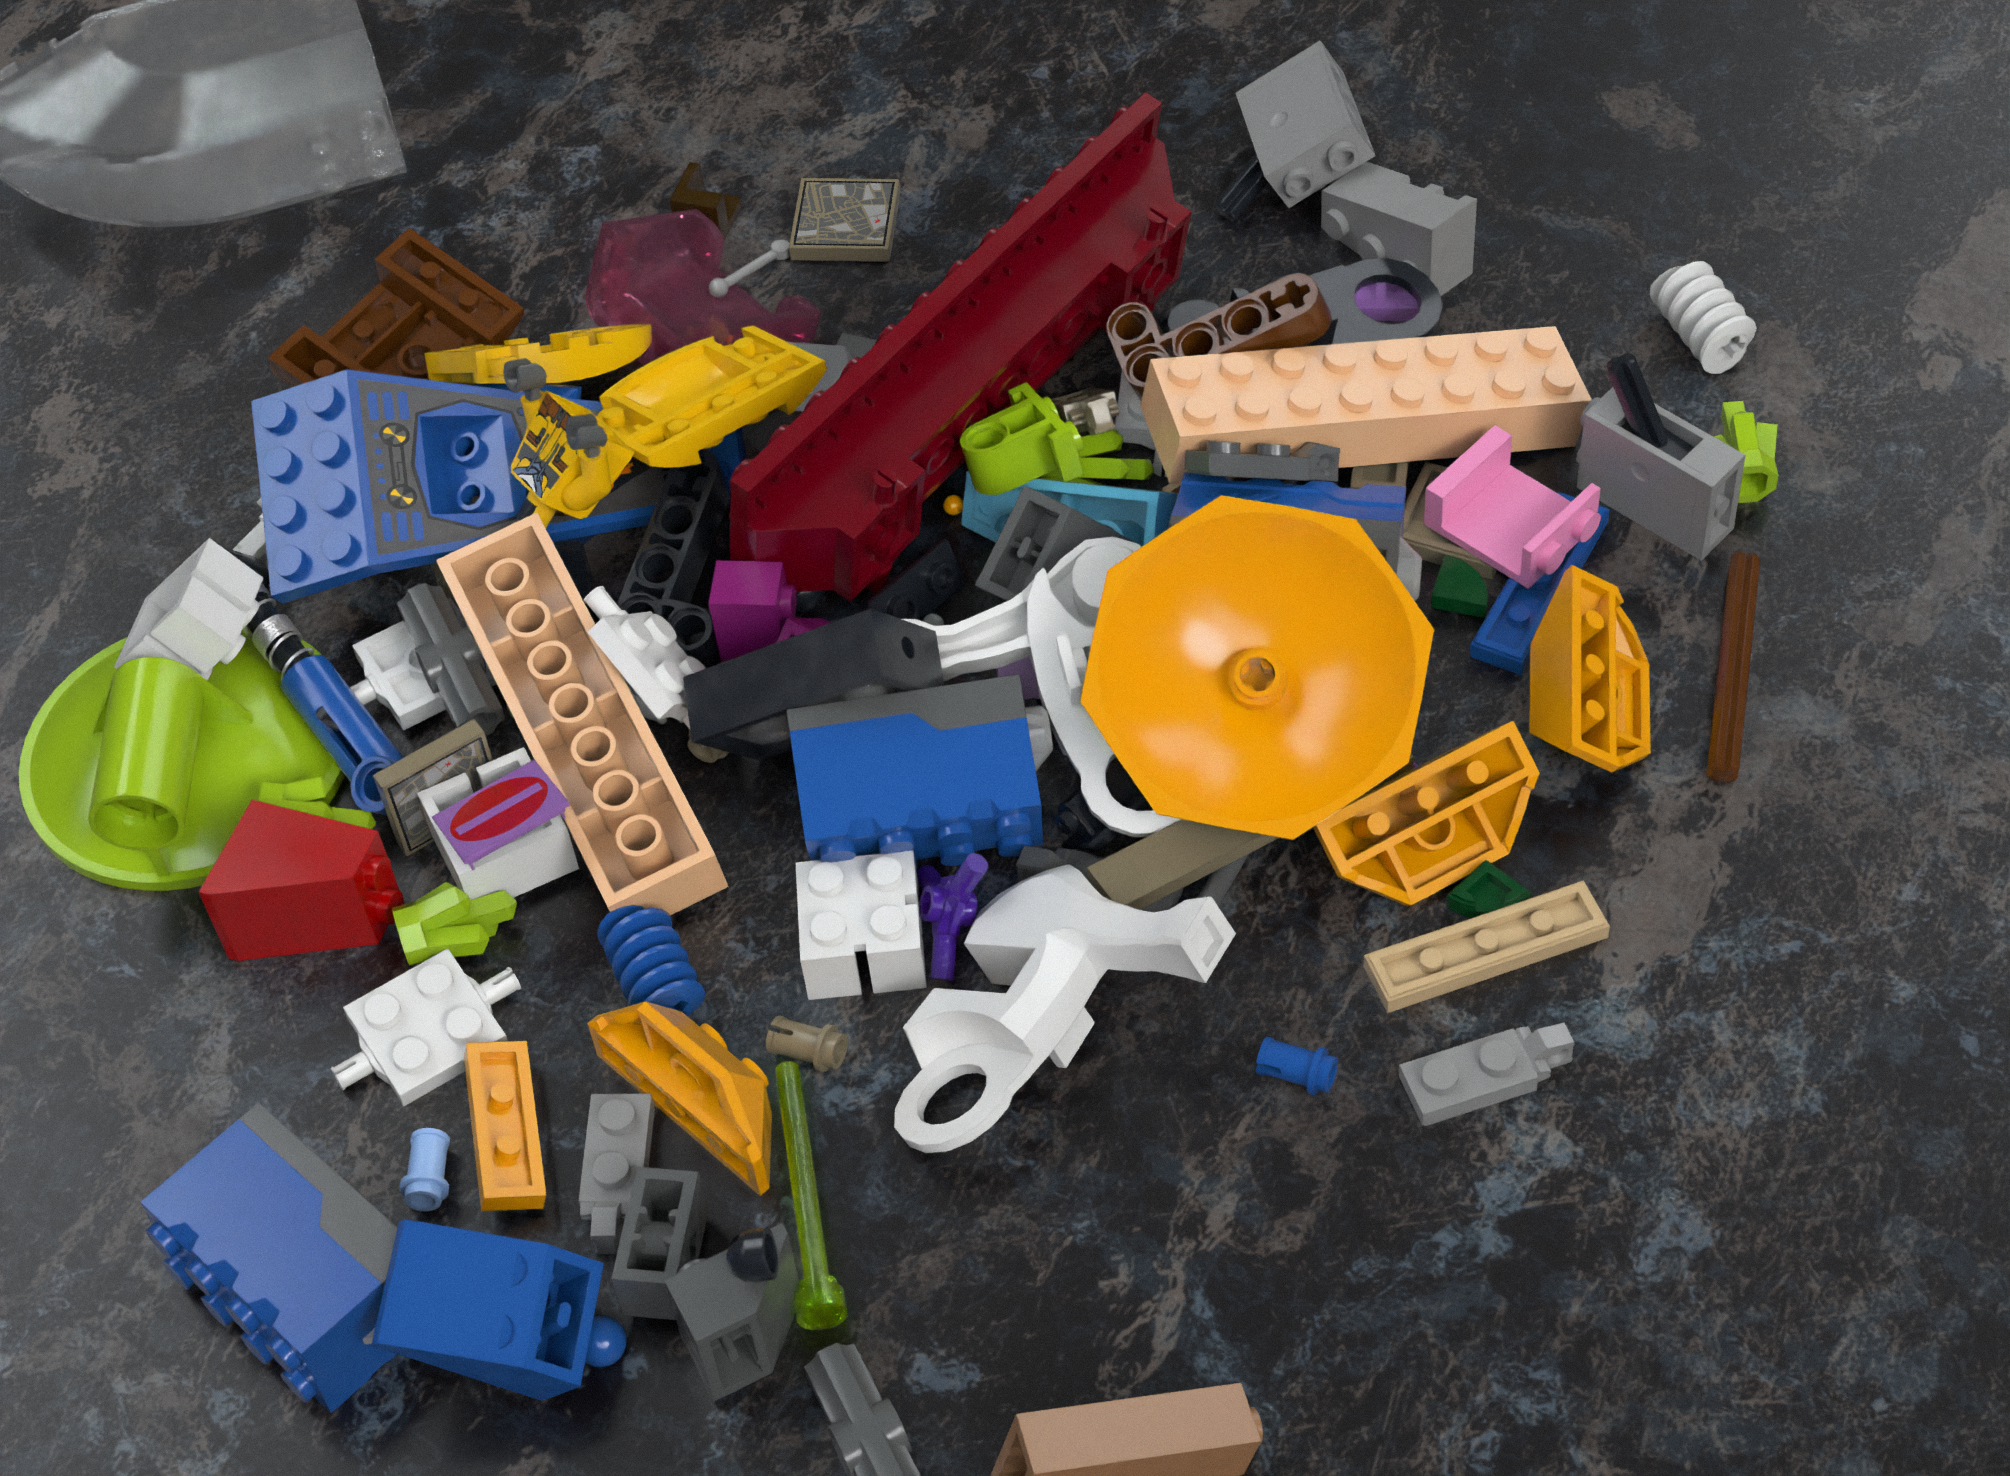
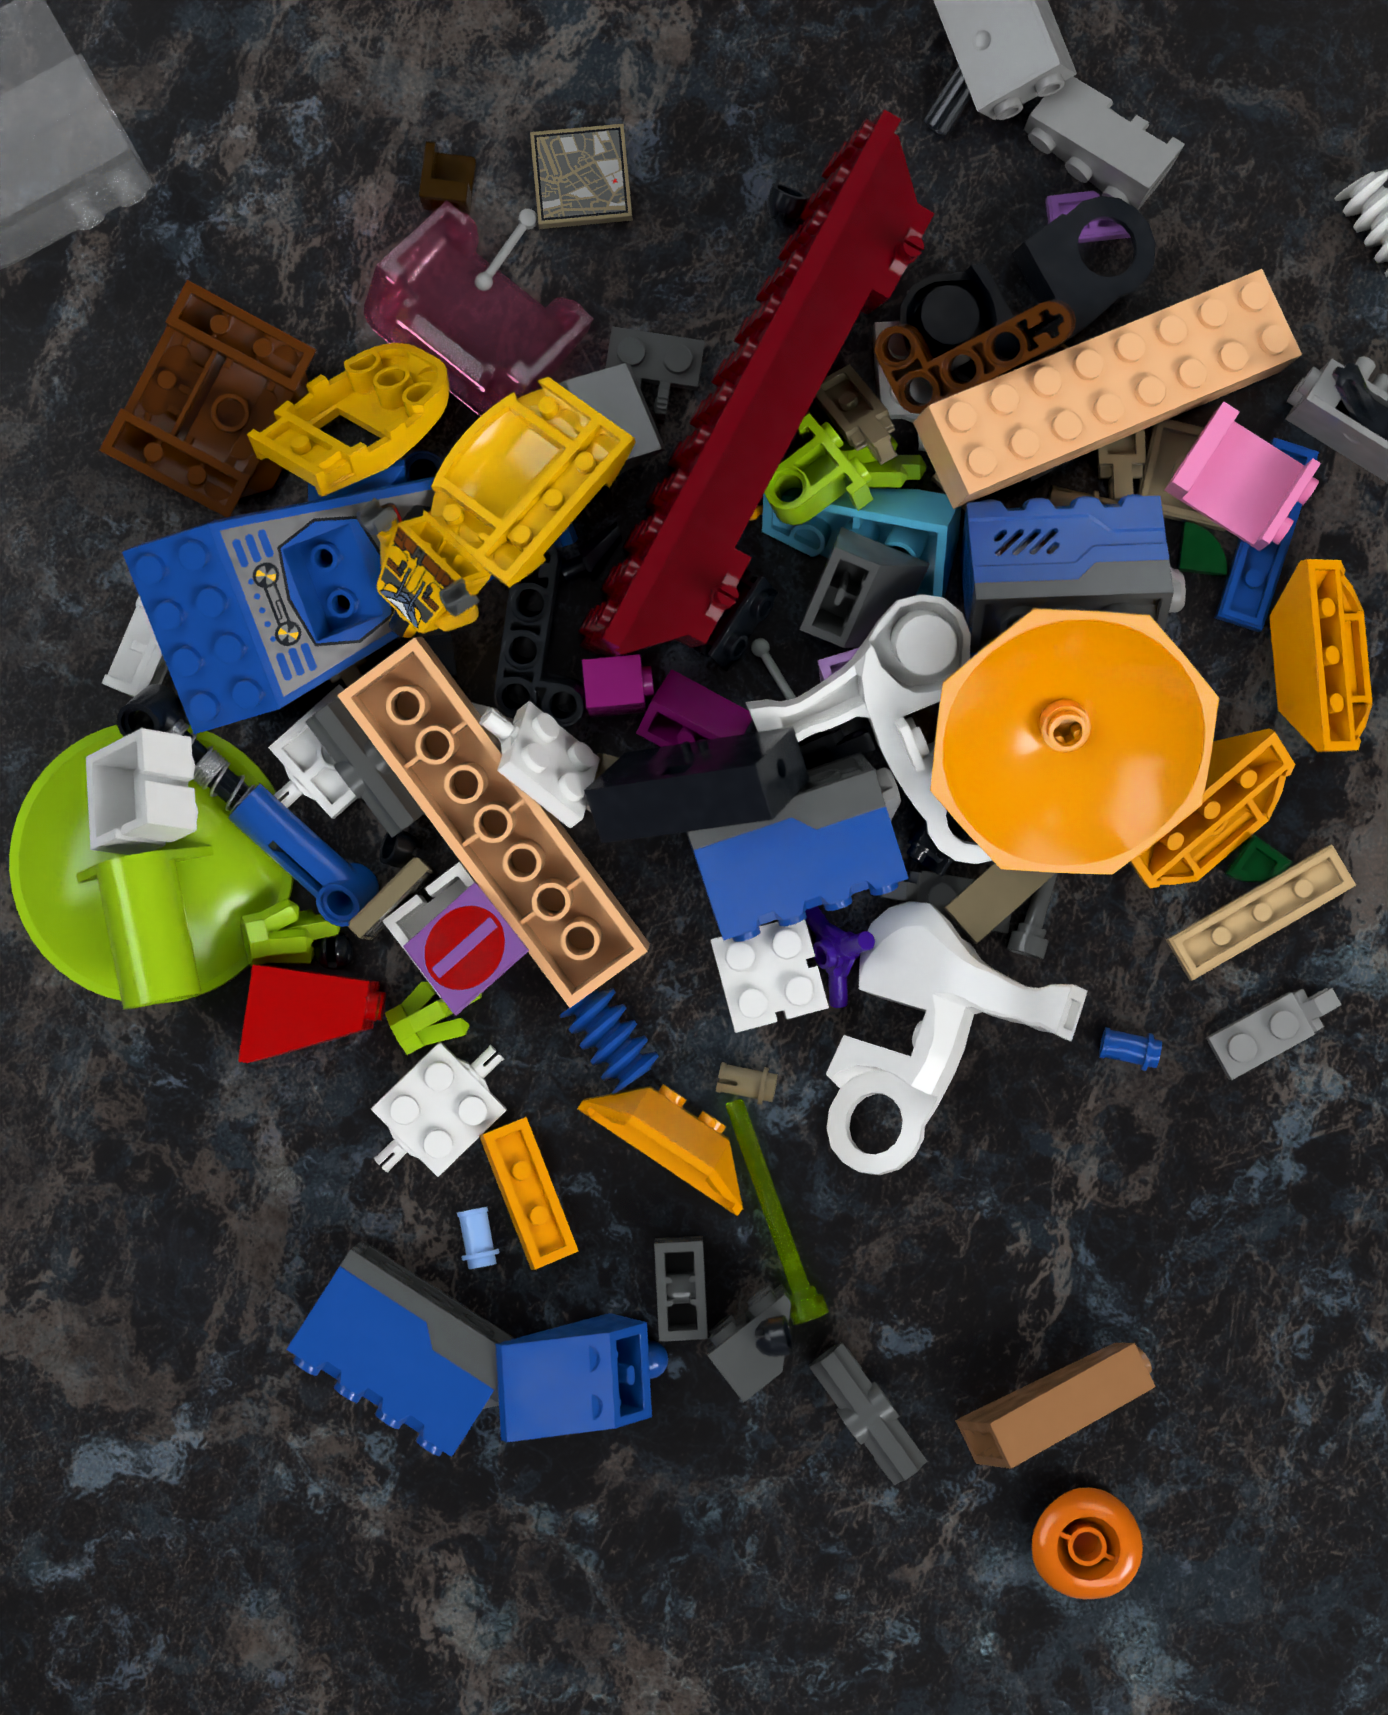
camera: 15 degrees left, 35 degrees up
(614, 1147) = (621, 1208): light grey hinge -> none
(1271, 461) = (1036, 494): dark grey hinge -> none

